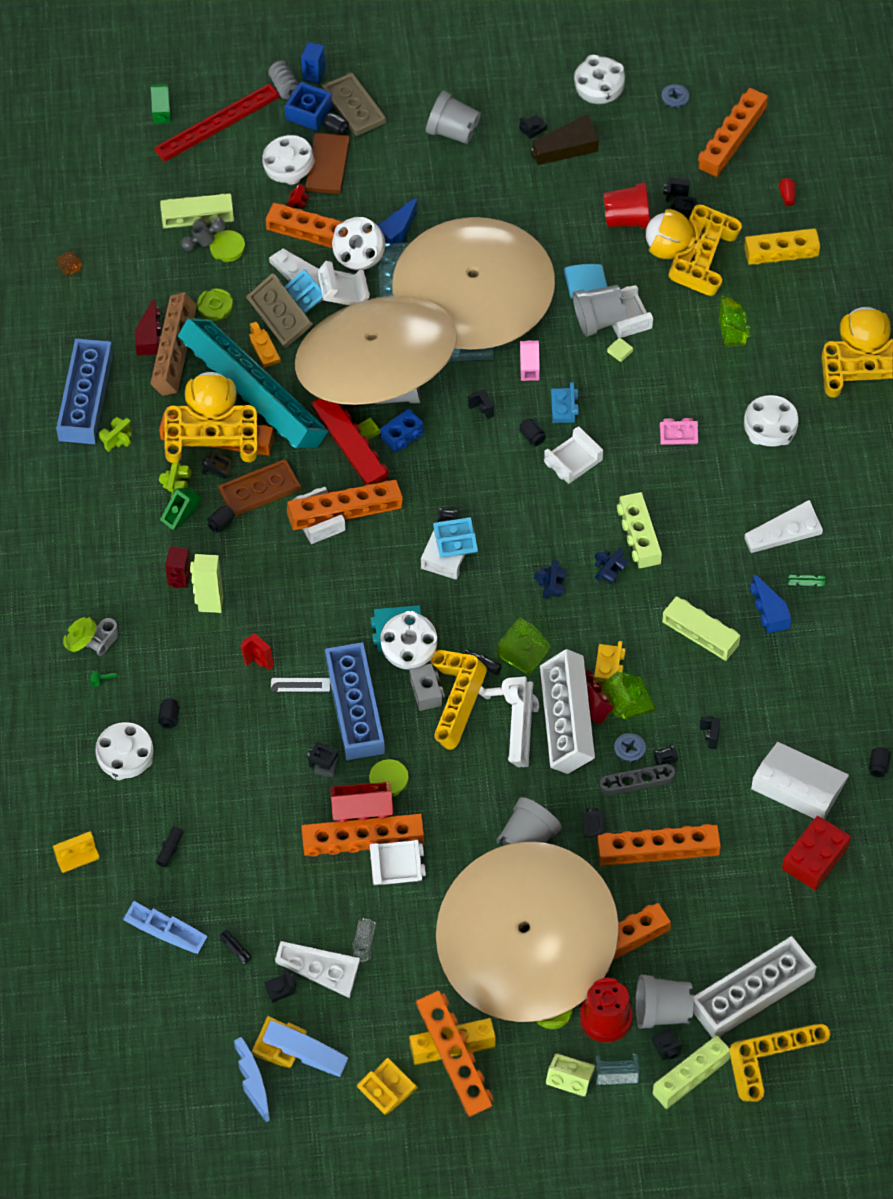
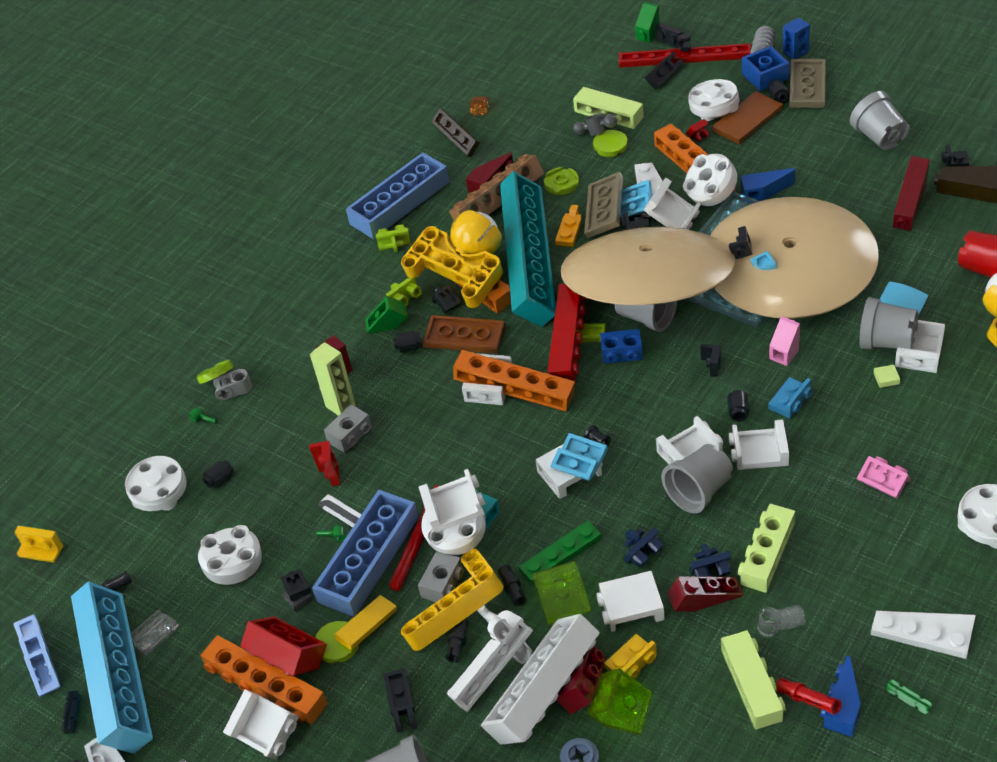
camera: 45 degrees right, 10 degrees down
(74, 302) = (455, 132): none -> dark brown plate
(196, 108) = (672, 37): none -> black hinge
(214, 148) = (662, 71): none -> black hinge
(241, 856) = (153, 632): none -> clear plate
(242, 607) = (348, 428): none -> light grey brick
(242, 894) = (111, 668): none -> medium azure brick
(245, 766) = (230, 555): none -> white piece
(311, 701) = (337, 533): none -> green hand
(319, 316) = (637, 222): none -> black bracket
(377, 669) = (408, 555): none -> red axle
(400, 750) = (365, 622): none -> yellow tile
(404, 622) = (453, 502): none -> white panel
(441, 293) = (742, 246): none -> black bracket
(467, 299) = (764, 261): none -> medium azure tile
(474, 786) = (400, 697): none -> black hinge
(478, 724) = (457, 641): none -> black pin
(494, 618) = (561, 550): none -> green plate
(523, 485) = (688, 441): none -> white panel
(526, 178) = (911, 193): none -> dark red slope
(554, 506) = (696, 478): none -> light grey piece
(576, 622) = (630, 599): none -> white panel
(620, 588) = (697, 593): none -> dark red slope
(687, 577) = (780, 620): none -> clear piece
(740, 618) = (800, 693): none -> red pin

